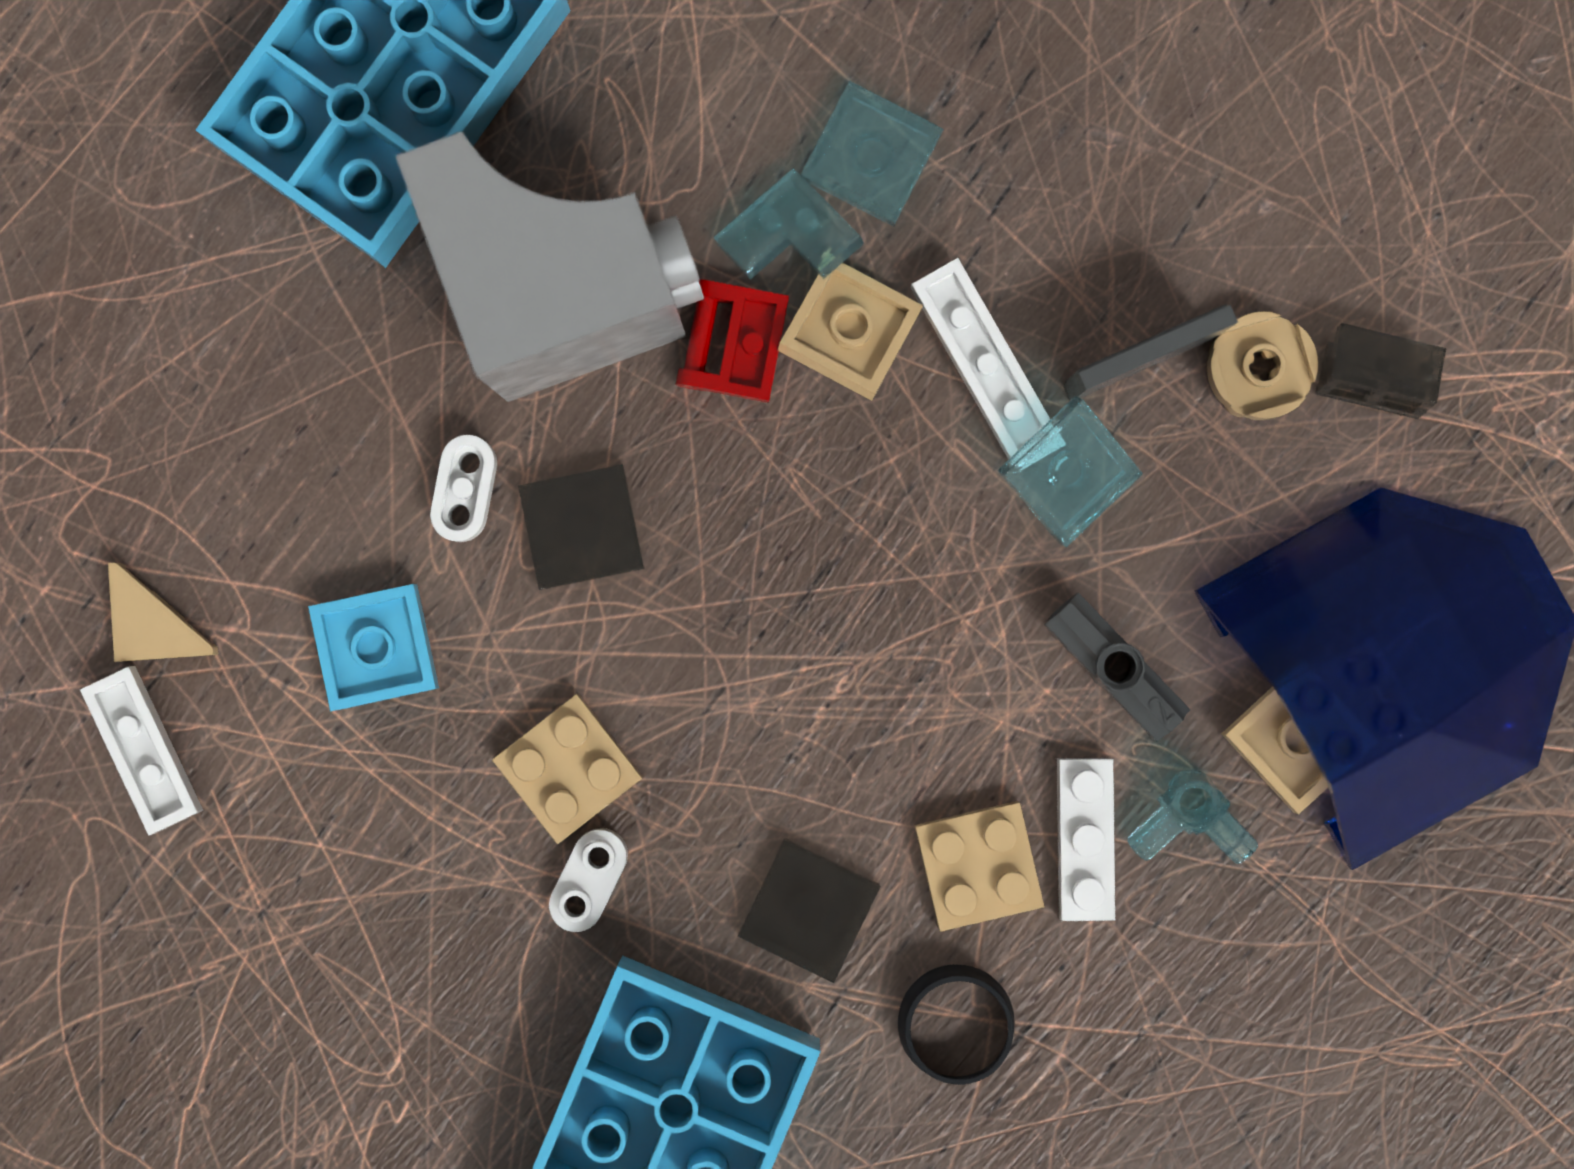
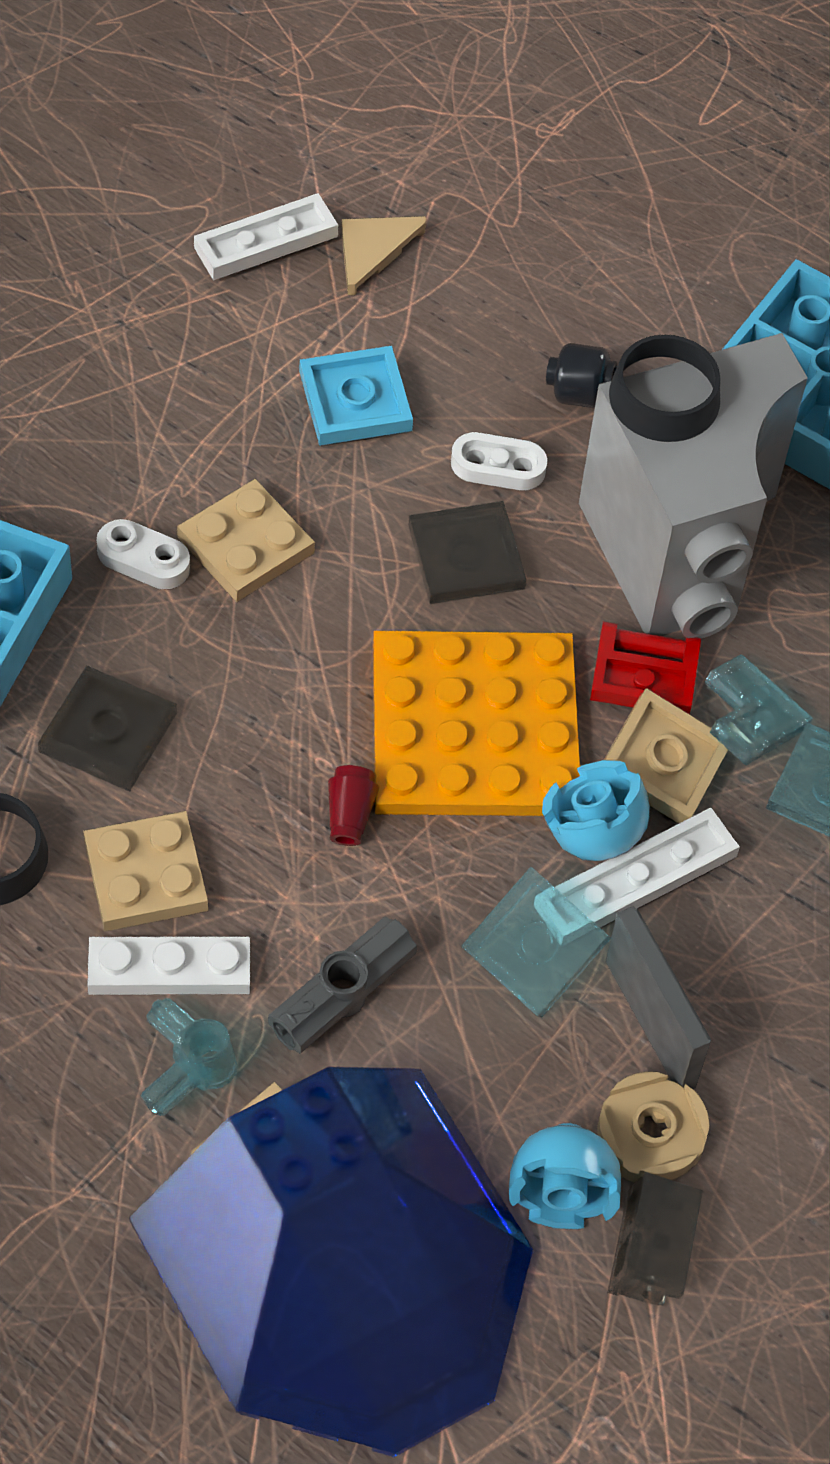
camera: 85 degrees right, 30 degrees down
(346, 390) = (578, 373): none -> black head
(524, 343) = (659, 424): none -> black tyre
(797, 524) = (472, 721): none -> light orange plate
(905, 657) = (350, 803): none -> dark red cone
(929, 403) = (598, 811): none -> medium azure cylinder
(1326, 453) = (565, 1177): none -> medium azure cylinder

